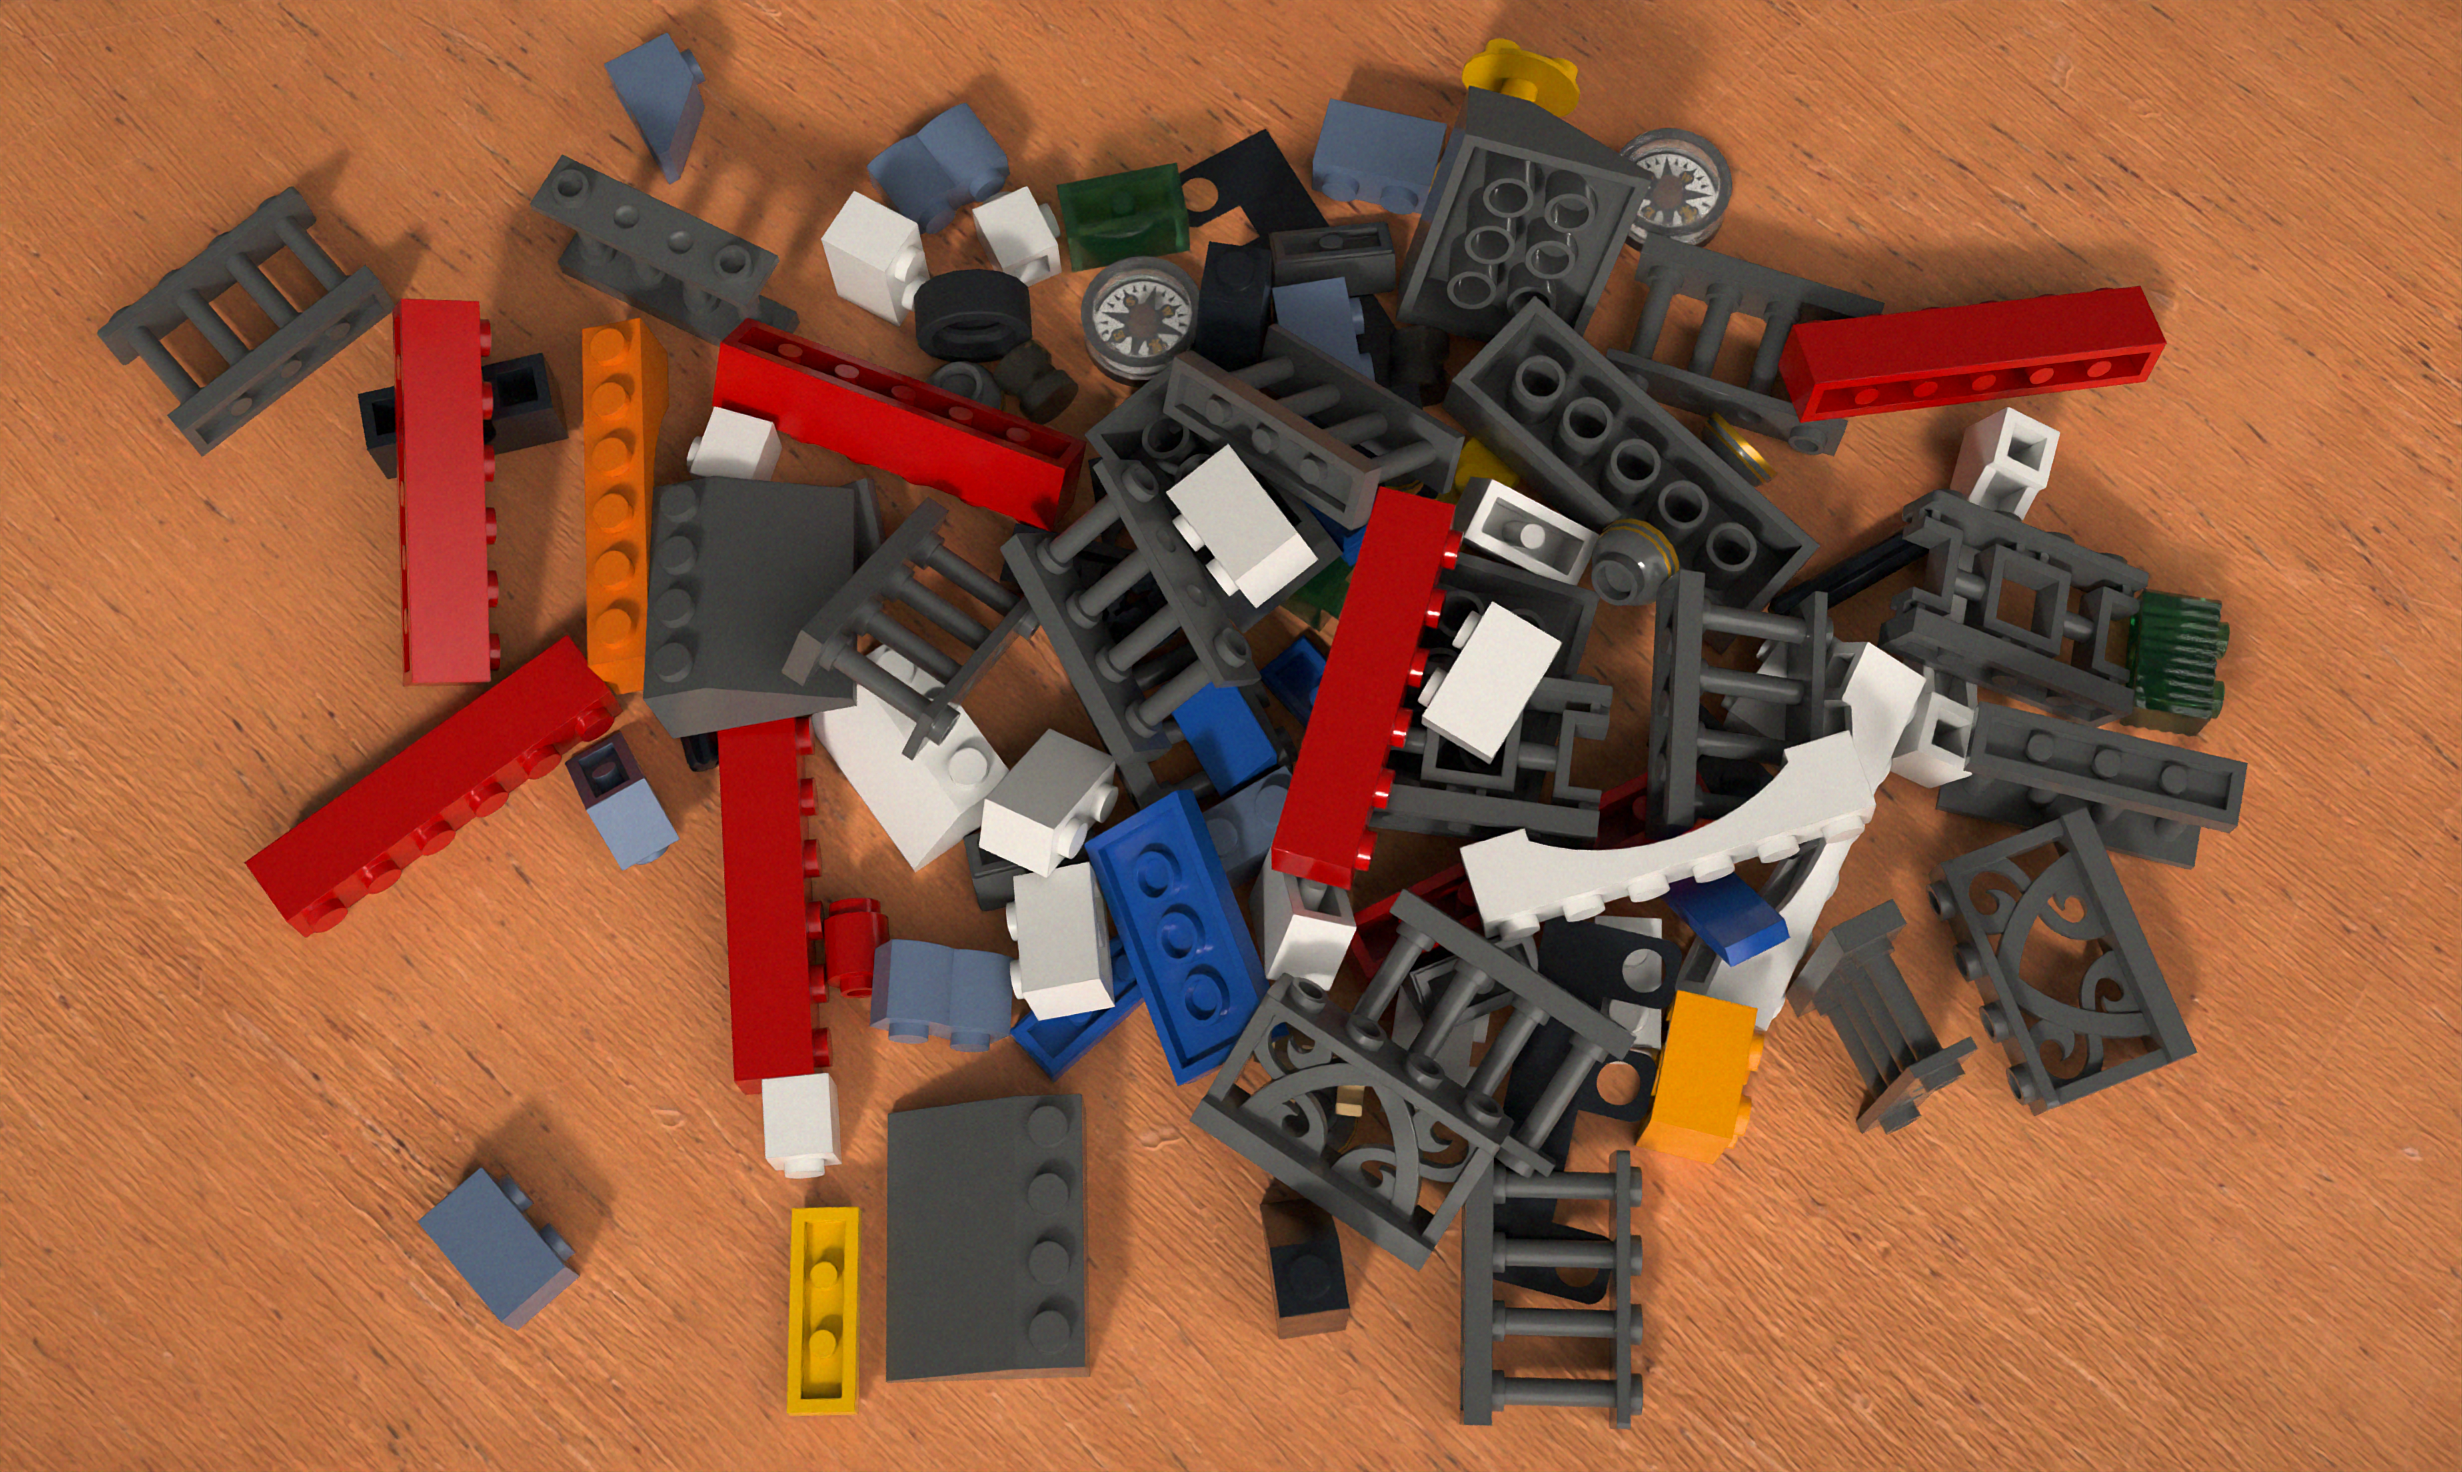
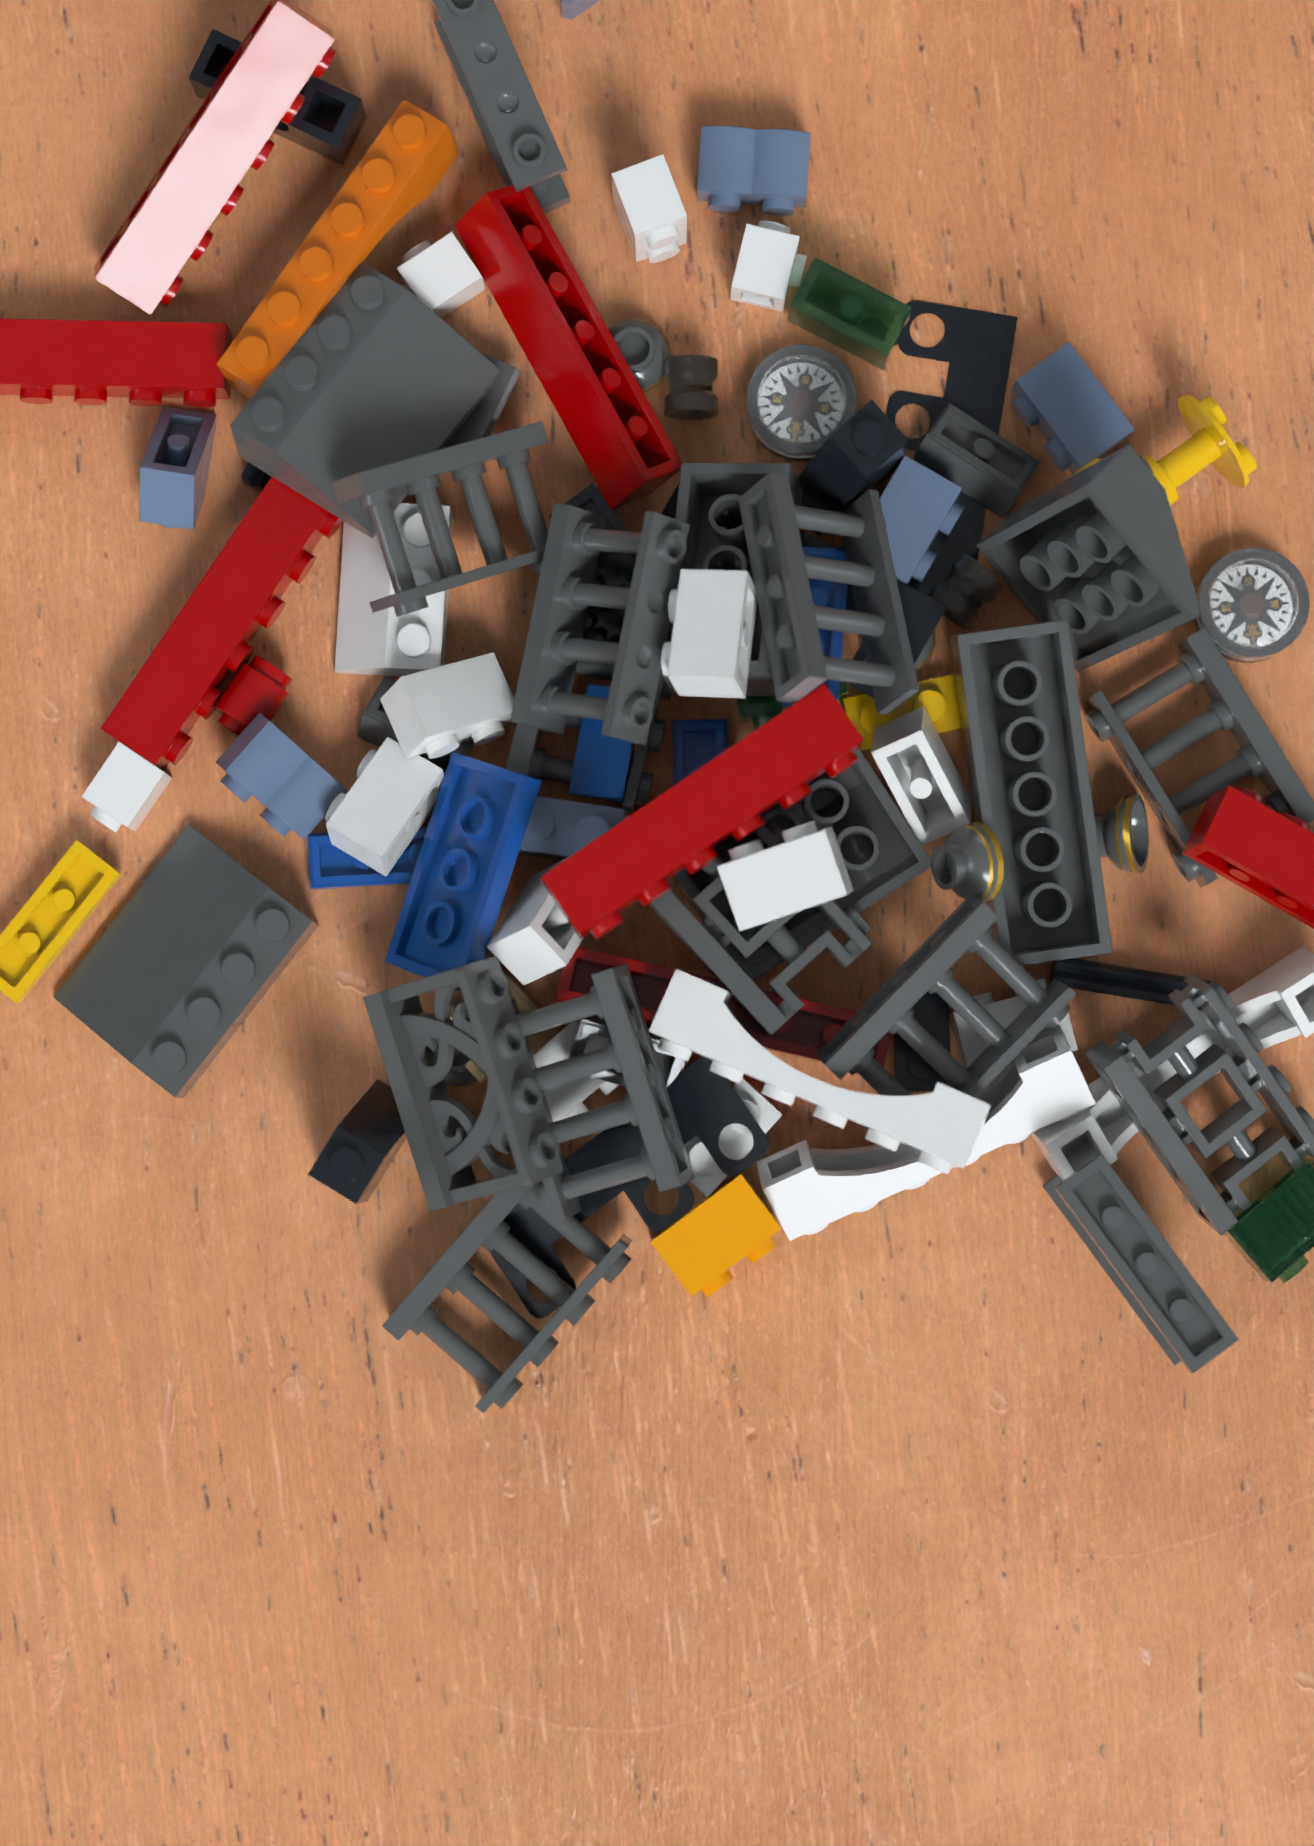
camera: 40 degrees right, 15 degrees up
(972, 315) = (682, 306): black tyre -> none
(1727, 916) = (821, 1149): blue tile -> none
(1878, 1017) = (861, 1257): dark grey fence -> none
(2082, 873) = (1043, 1427): dark grey fence -> none

